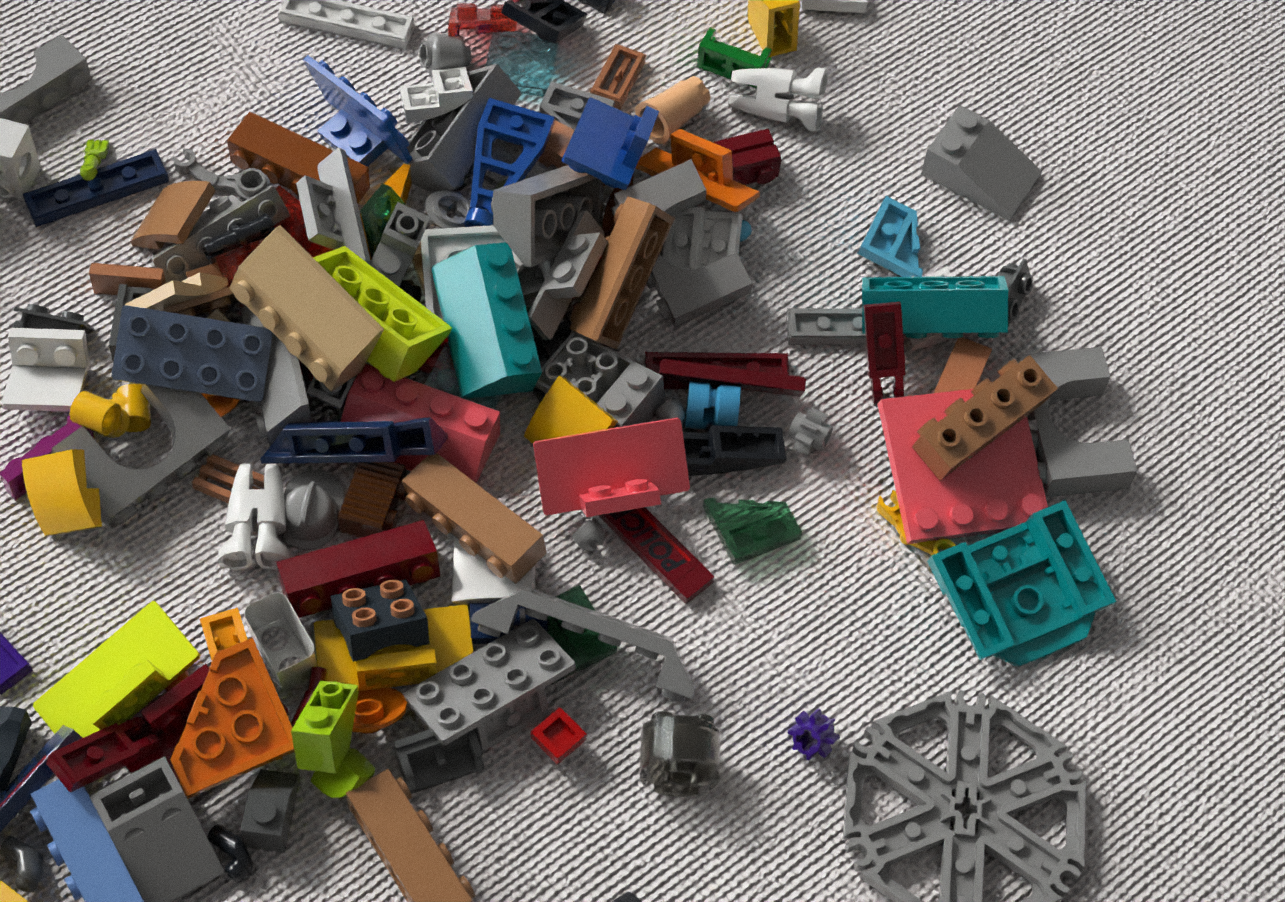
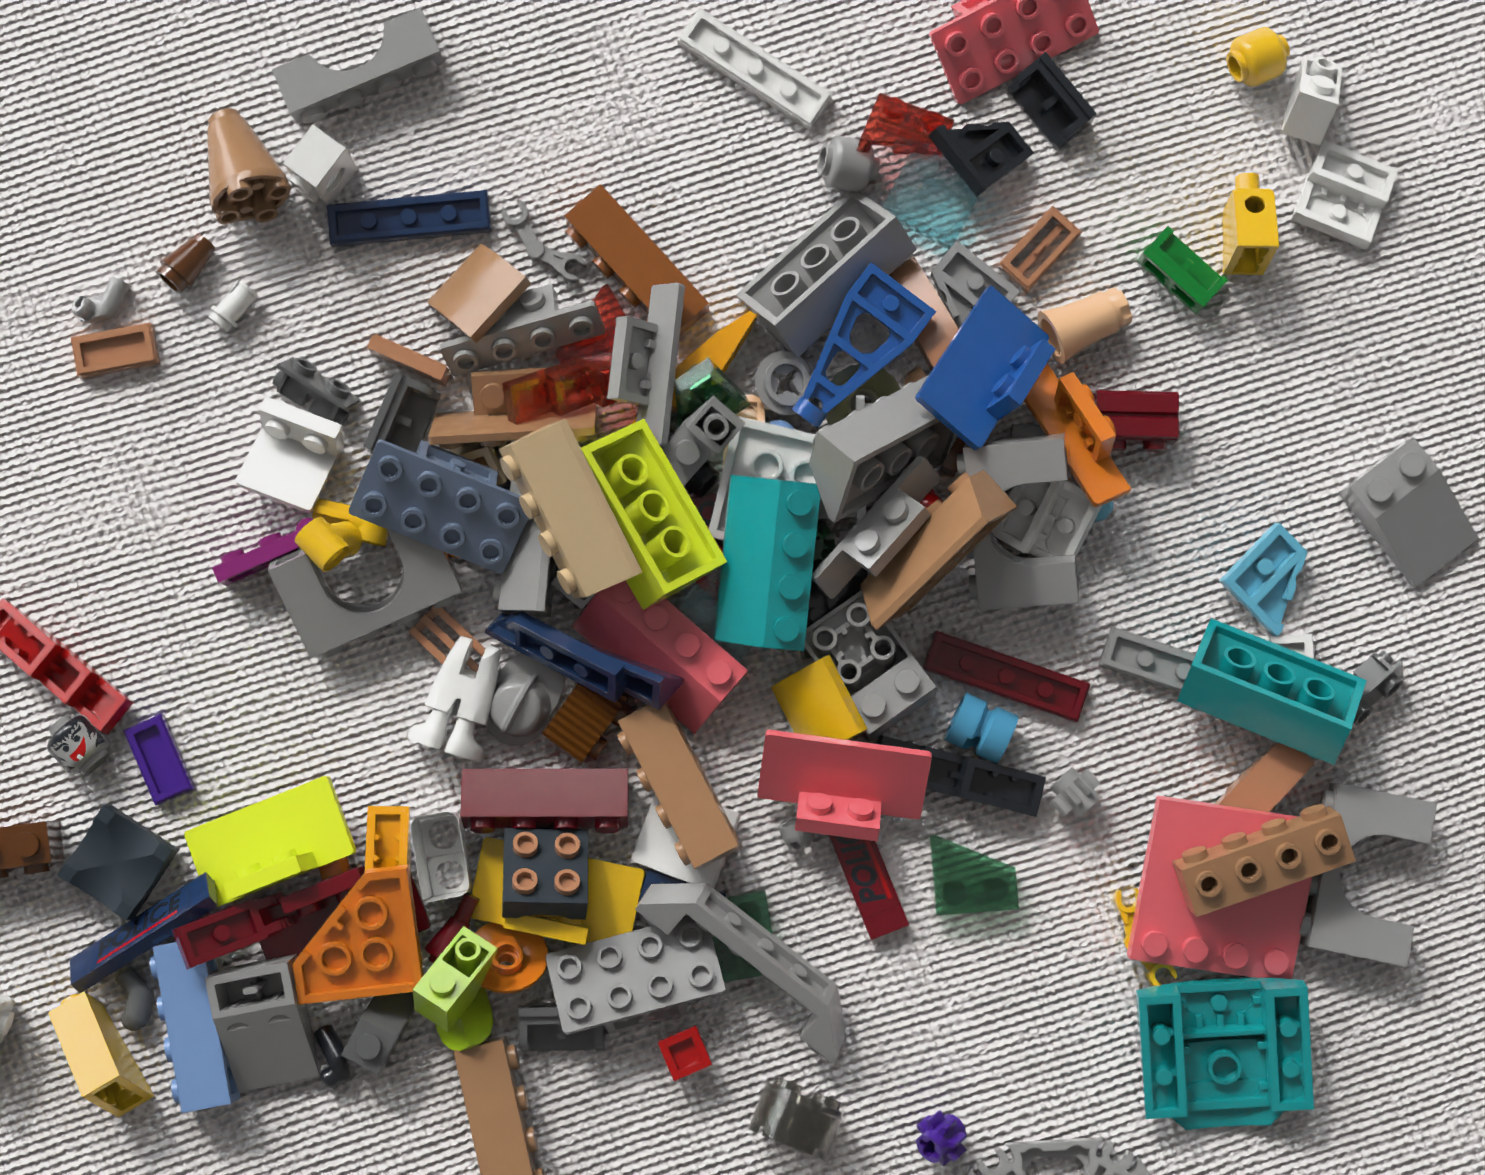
camera: 25 degrees right, 25 degrees up
(60, 492) = (266, 616): yellow slope -> none
(94, 153) = (419, 173): lime piece -> none
(177, 292) = (448, 419): tan slope -> none
(238, 237) = (537, 355): black pin -> none
(250, 183) = (570, 281): light grey cone -> none
(358, 124) = (707, 238): blue bracket -> none
(447, 92) = (817, 225): white slope -> none
(671, 410) = (935, 721): light grey hinge -> none
(747, 379) = (1013, 704): dark red tile -> none
(776, 94) = (1206, 339): white piece -> none
(885, 347) = (1193, 729): dark red hinge -> none

